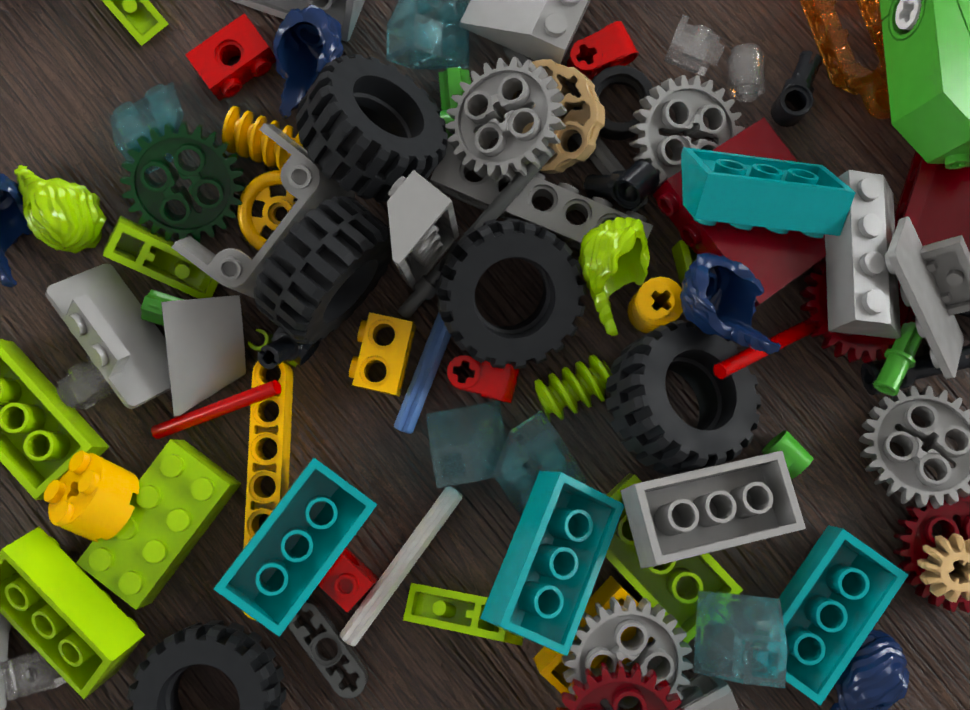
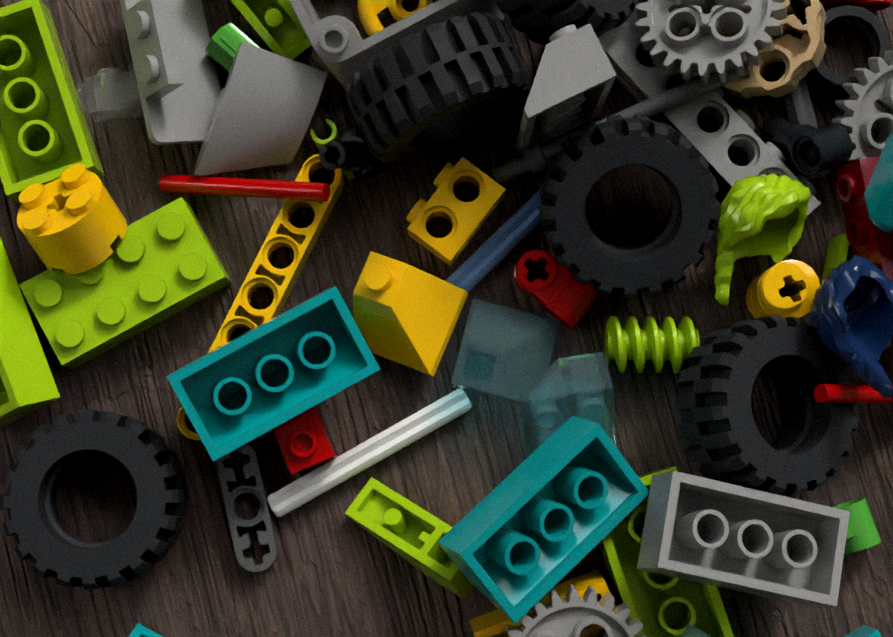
camera: 10 degrees right, 0 degrees up
(379, 449) = (405, 312): none -> yellow slope

